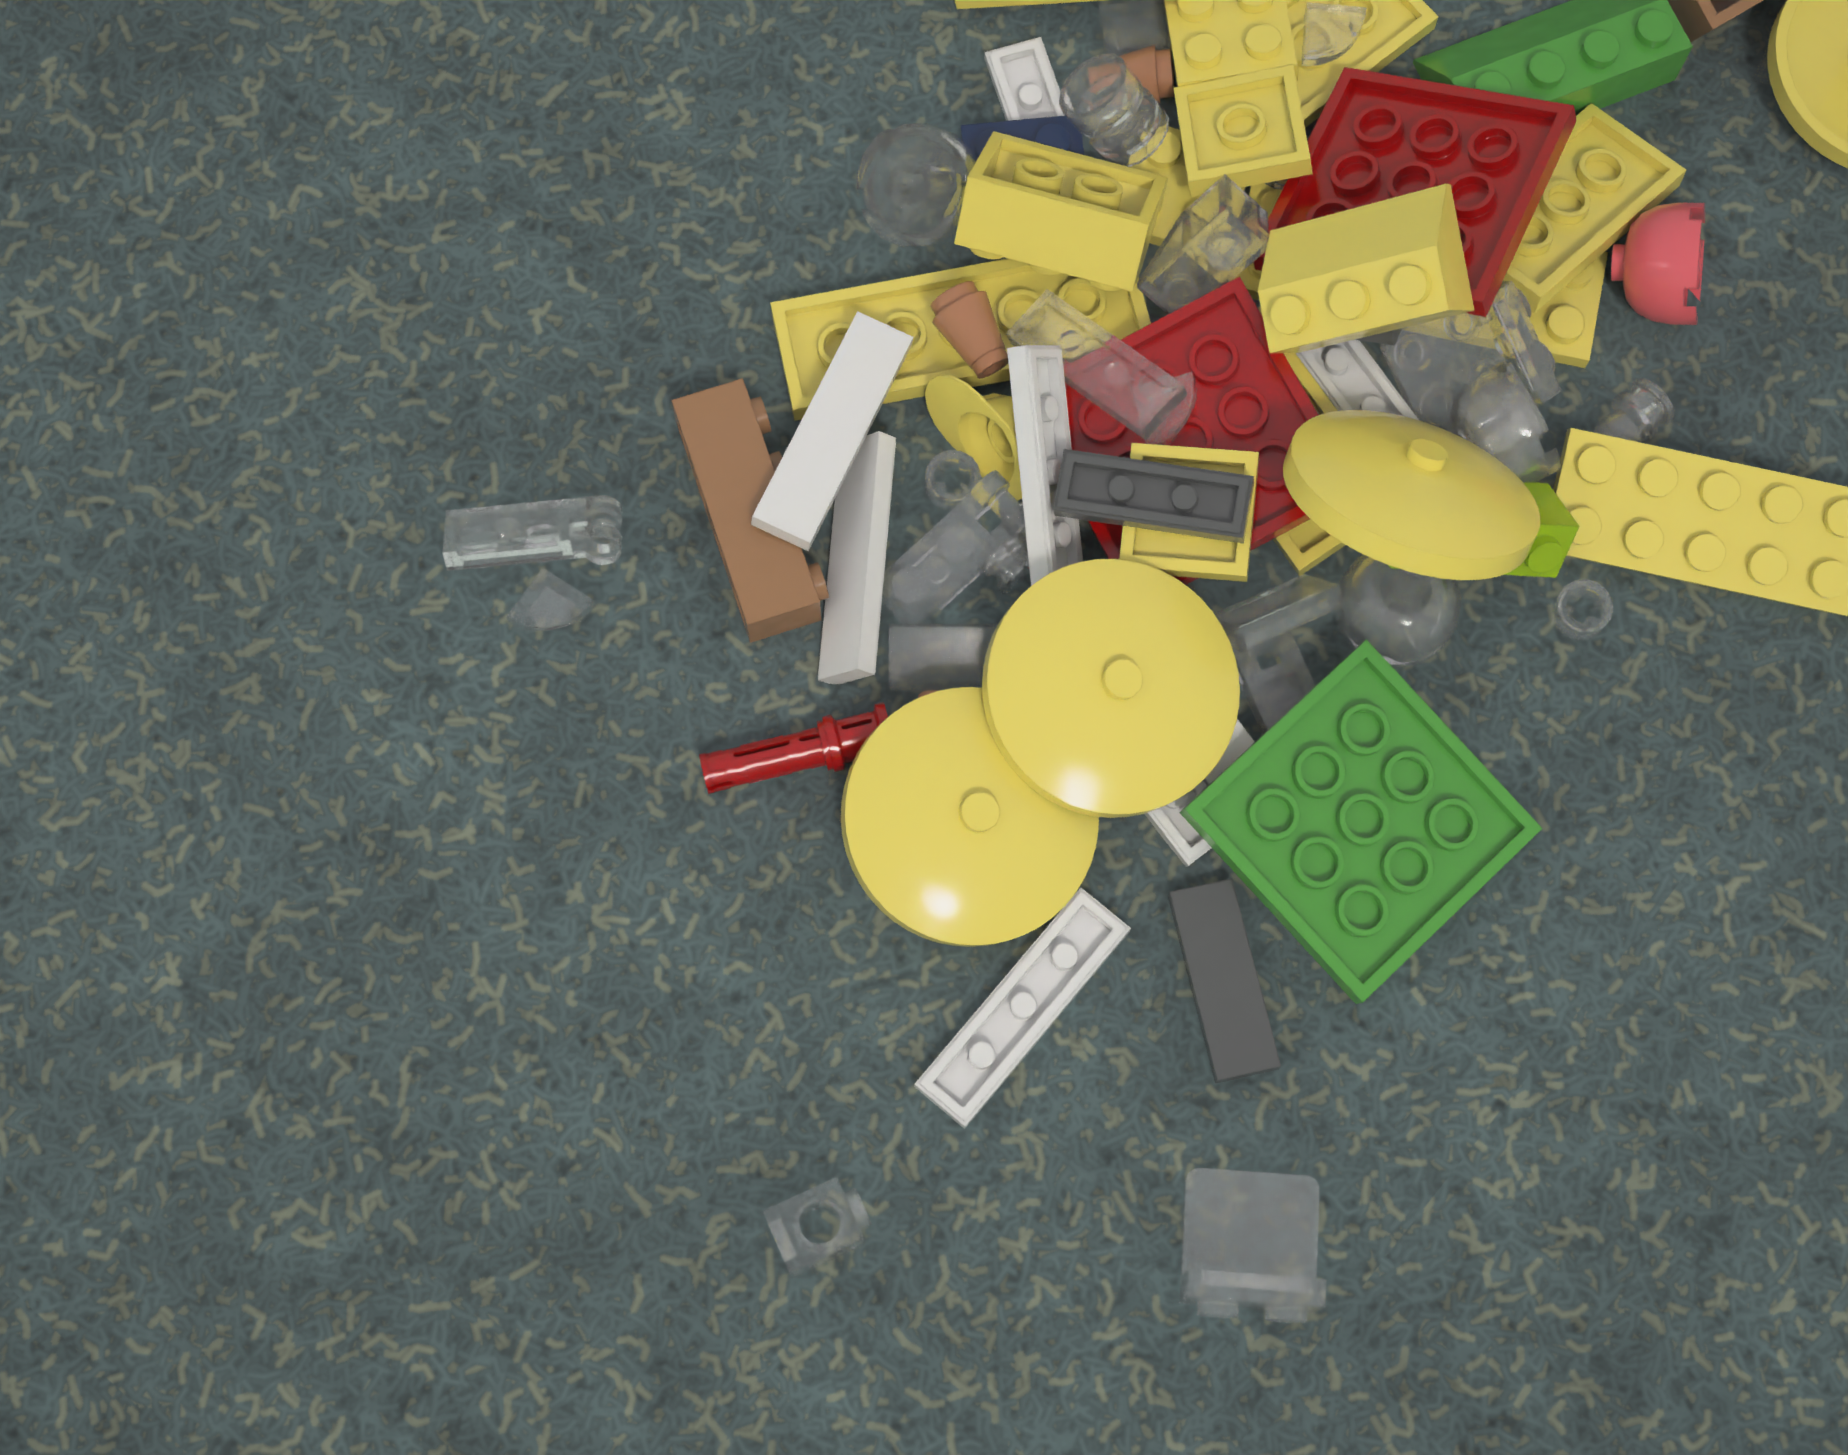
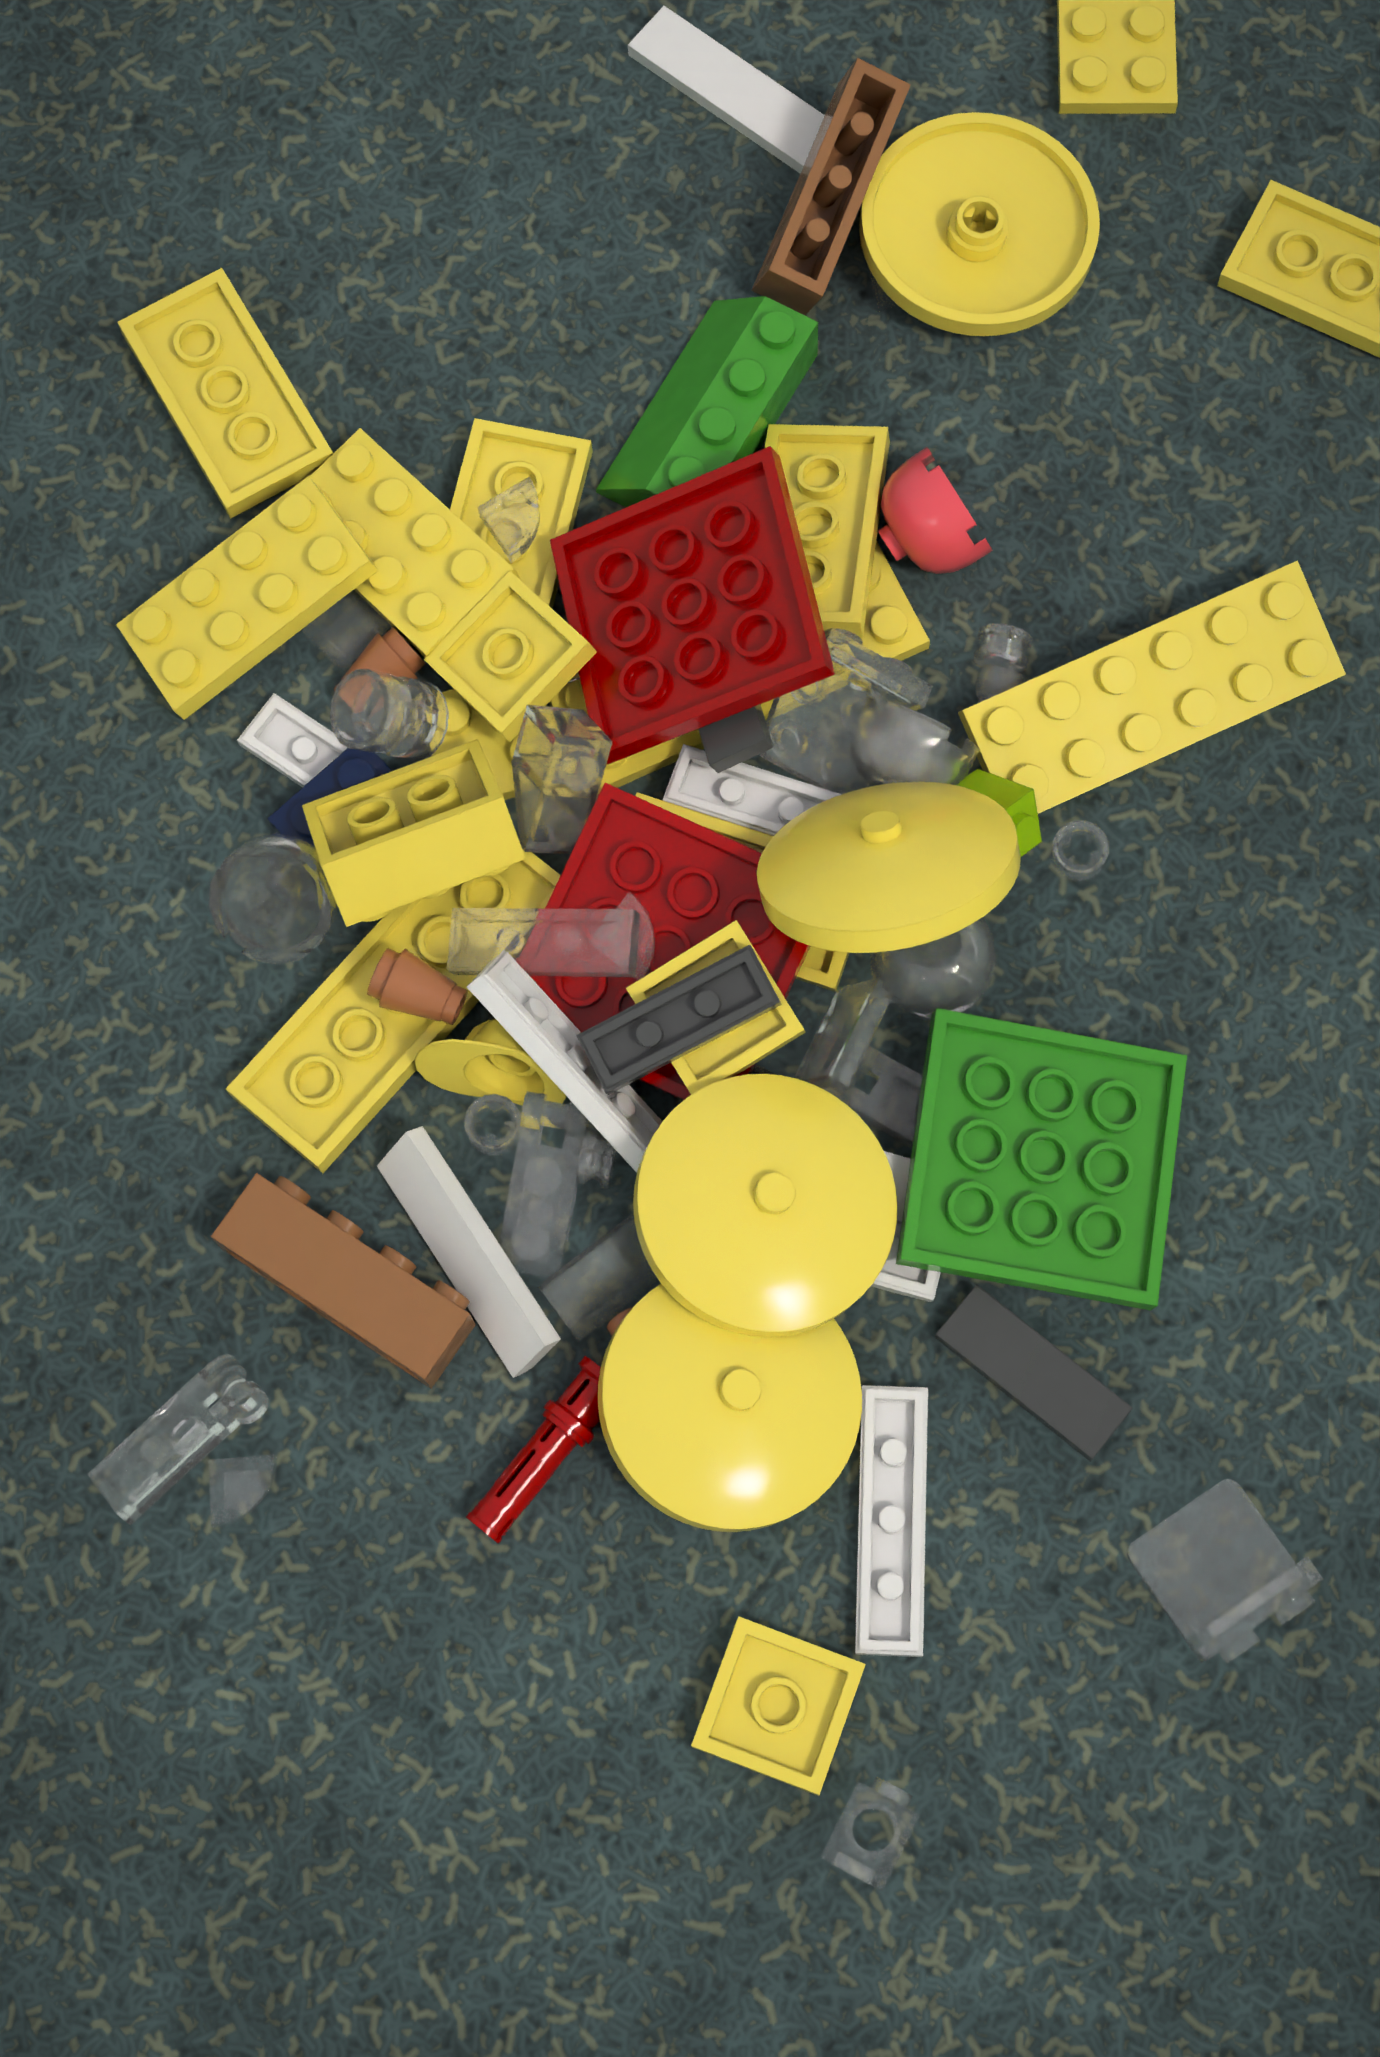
camera: 30 degrees left, 0 degrees up
(823, 1077) = (778, 1705): none -> light yellow plate
(832, 431) = (368, 1162): white tile -> none
(1364, 272) = (709, 708): light yellow slope -> none

